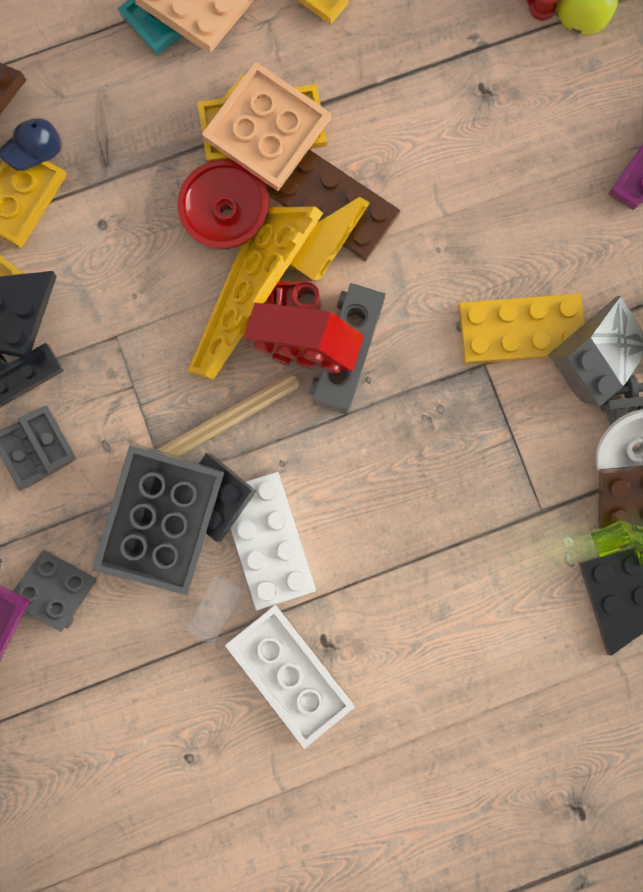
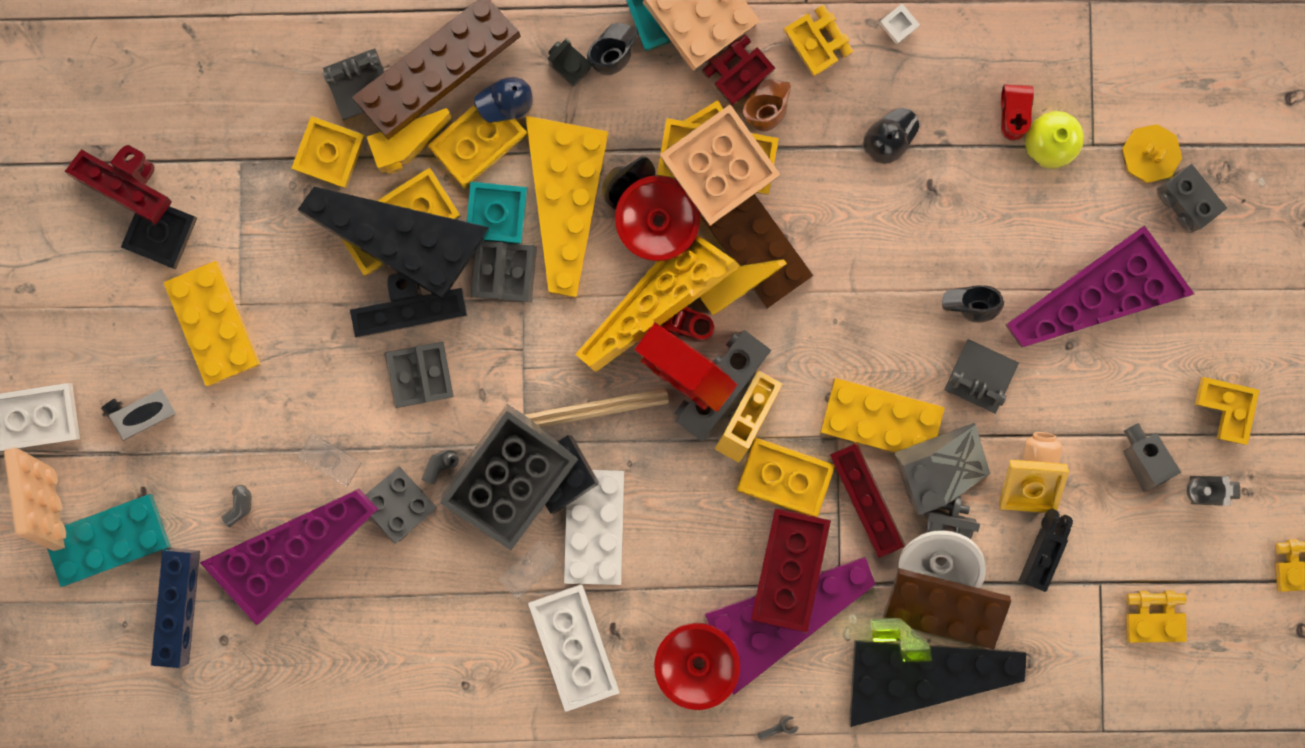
camera: 20 degrees right, 5 degrees up
(62, 251) = (498, 208): none -> teal plate
(82, 89) = (568, 62): none -> pearl dark grey bracket
(82, 531) = (439, 462): none -> dark grey arm
(86, 314) = (504, 271): none -> dark grey slope
(121, 205) = (566, 181): none -> yellow wing
(122, 62) = (612, 49): none -> black cap
(175, 175) = (623, 177): none -> black cap
(262, 43) = (743, 76): none -> dark red plate
(295, 62) = (767, 104): none -> dark orange cap
(386, 372) = (748, 416): none -> yellow slope
(422, 671) = (694, 686): none -> red dish
(427, 65) = (901, 126): none -> black cap
(447, 421) = (785, 477): none -> yellow tile
(487, 577) = (764, 644): none -> magenta wing
(489, 513) = (791, 571): none -> dark red plate
(536, 684) = (778, 728): none -> dark grey hand
(539, 413) = (867, 500): none -> dark red plate
(572, 181) = (976, 302): none -> black cap
(605, 251) = (981, 376): none -> dark grey hinge

